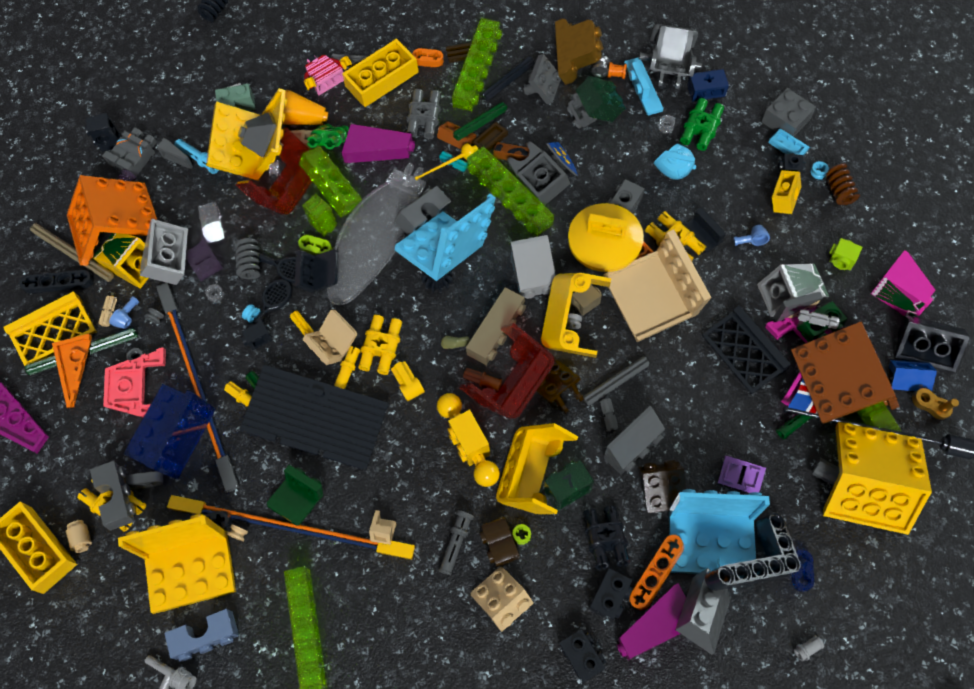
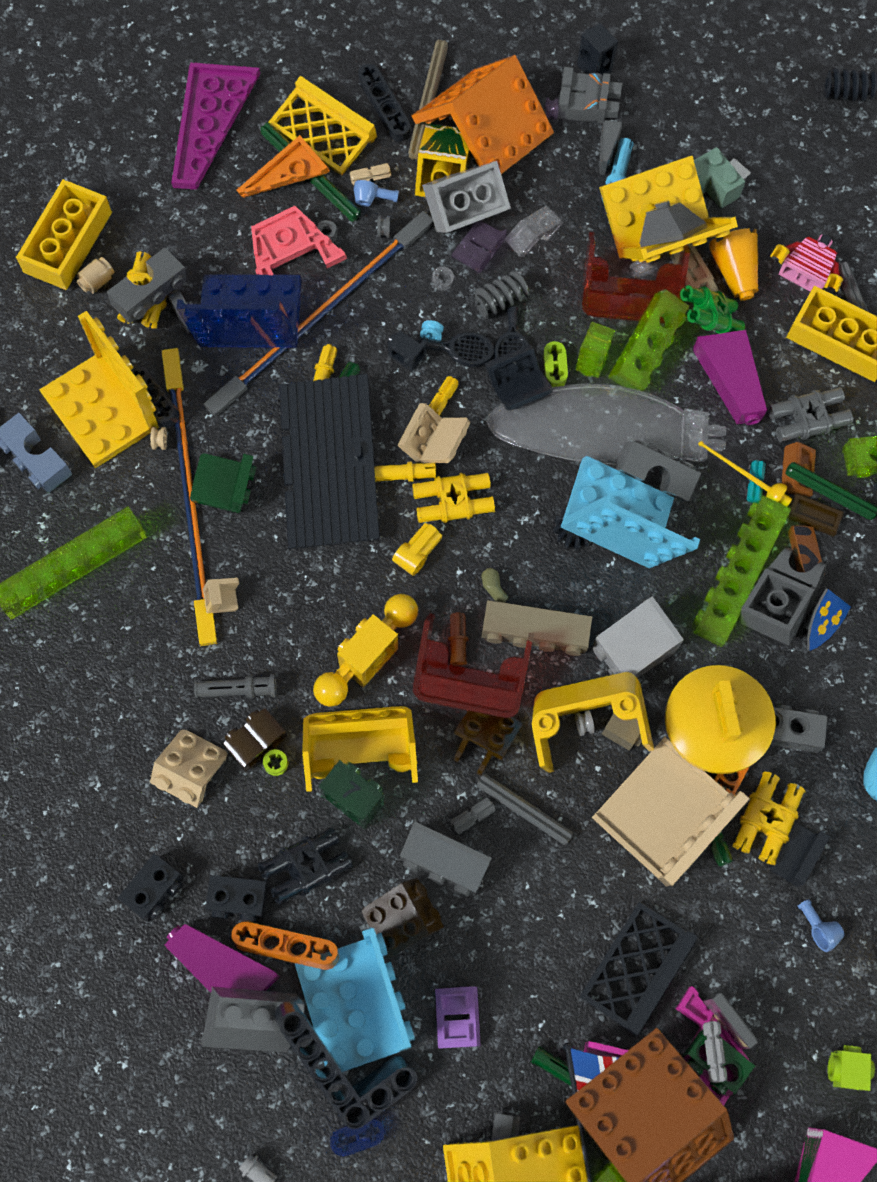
camera: 60 degrees right, 5 degrees up
(790, 282) = (764, 1006): light grey slope -> none

